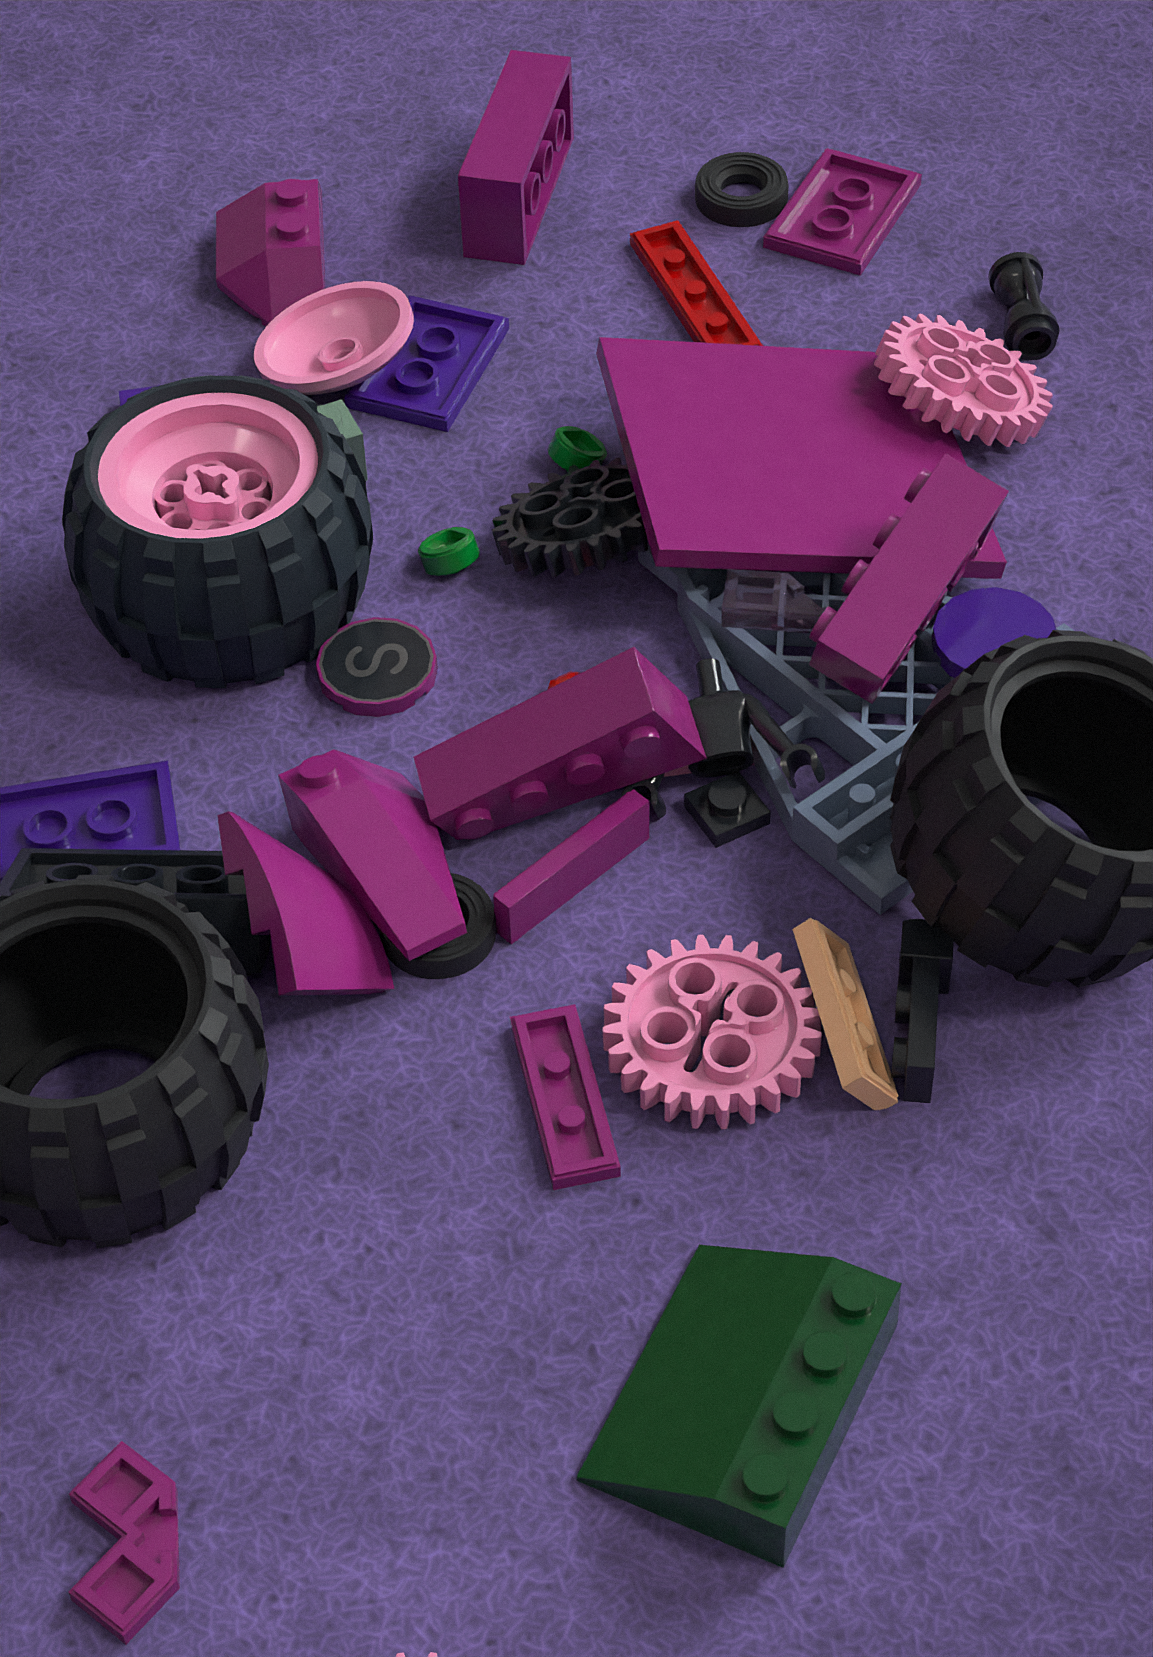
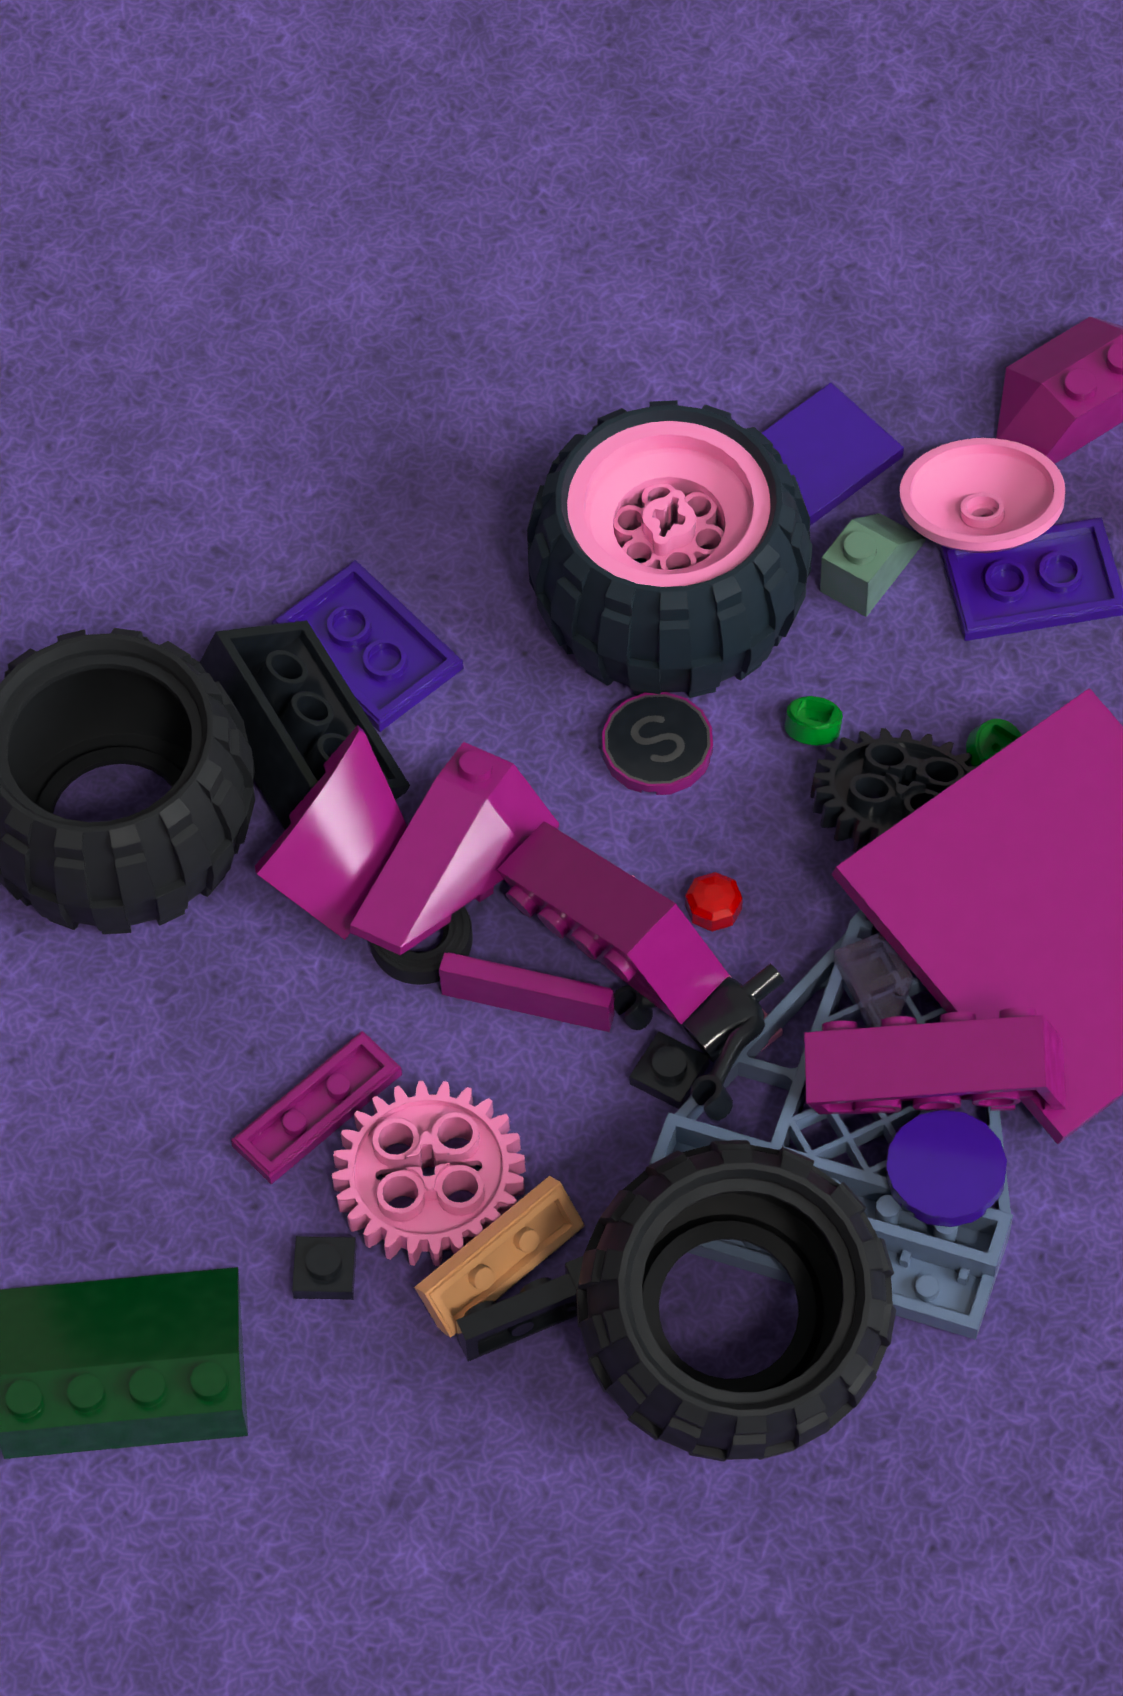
camera: 60 degrees right, 10 degrees up
(752, 1169) = (324, 1268): none -> black plate

